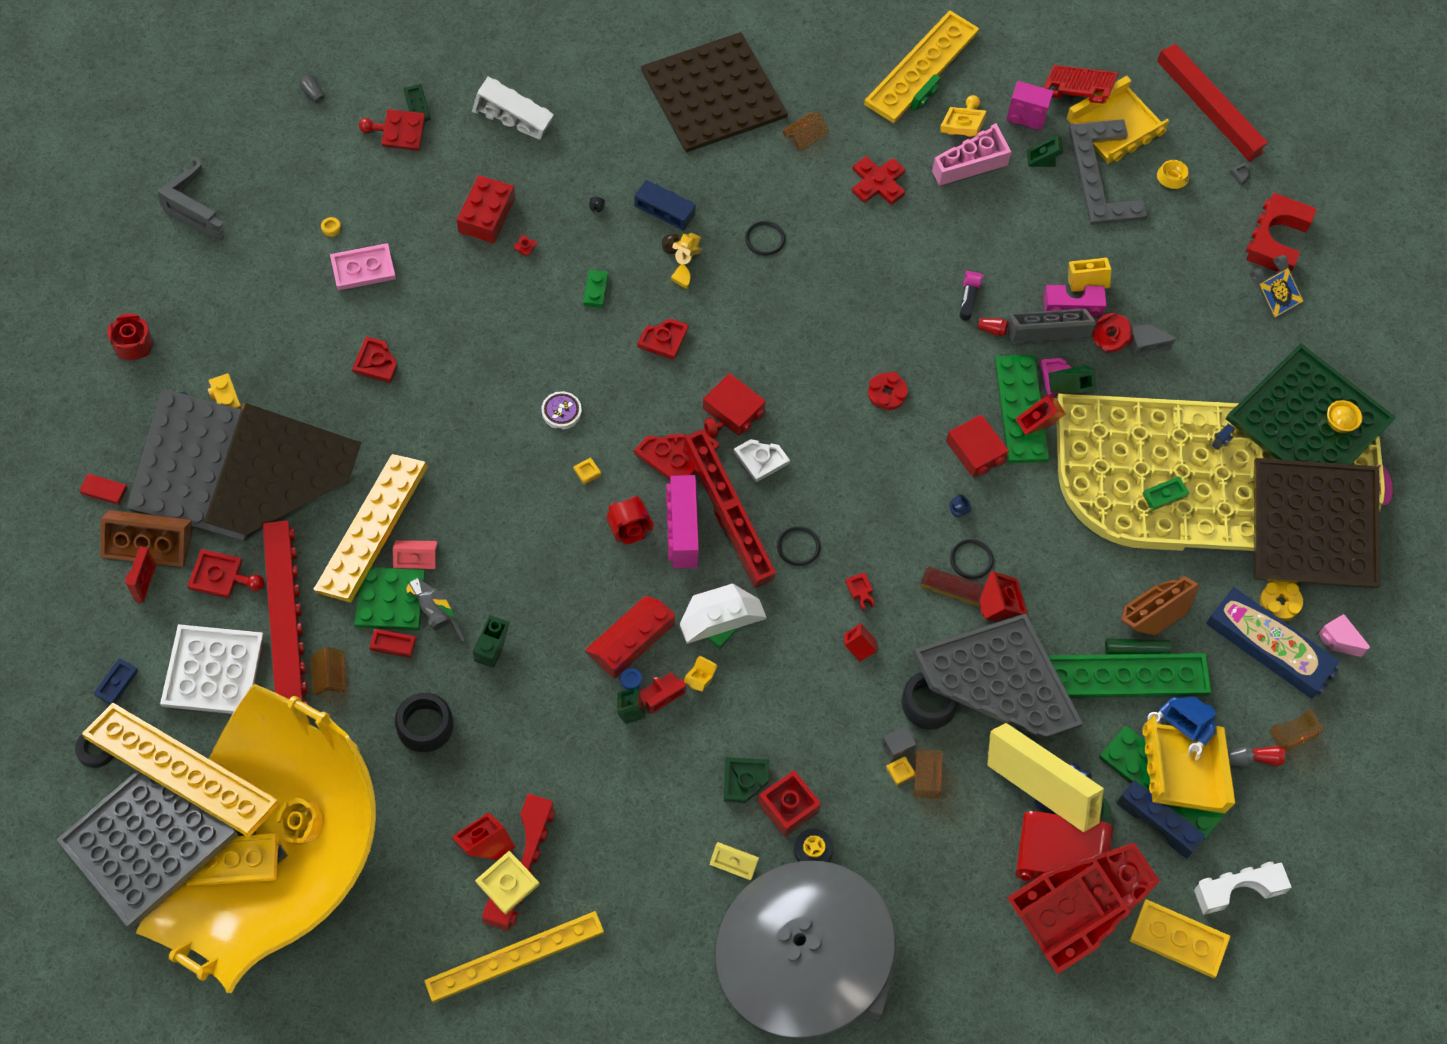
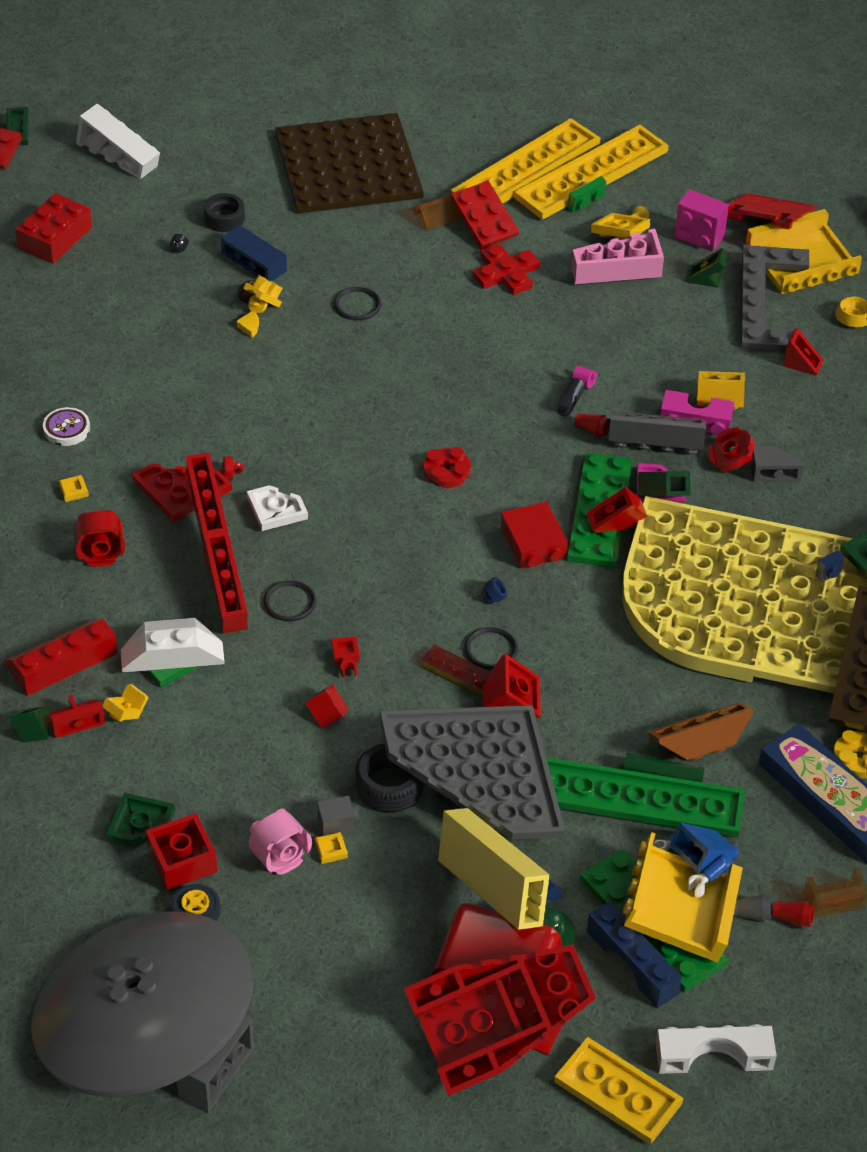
camera: 15 degrees right, 15 degrees down
(525, 250) = (85, 269): red plate -> none
(595, 288) = (148, 320): green plate -> none
(625, 177) = (220, 202): none -> black tyre
(631, 678) = (45, 696): blue tile -> none
(664, 338) = (207, 378): red plate -> none
(682, 521) = (159, 548): dark pink brick -> none
(734, 405) = (263, 450): red brick -> none
(734, 861) = (95, 901): light yellow plate -> none
(847, 129) = (484, 214): none -> red plate
(863, 779) = (279, 842): none -> bright pink brick
(865, 71) = (536, 159): none -> yellow plate
(928, 773) = (360, 854): clear orange panel -> none
(1143, 226) = (801, 354): none -> red slope
(1165, 493) = (741, 612): green plate -> none

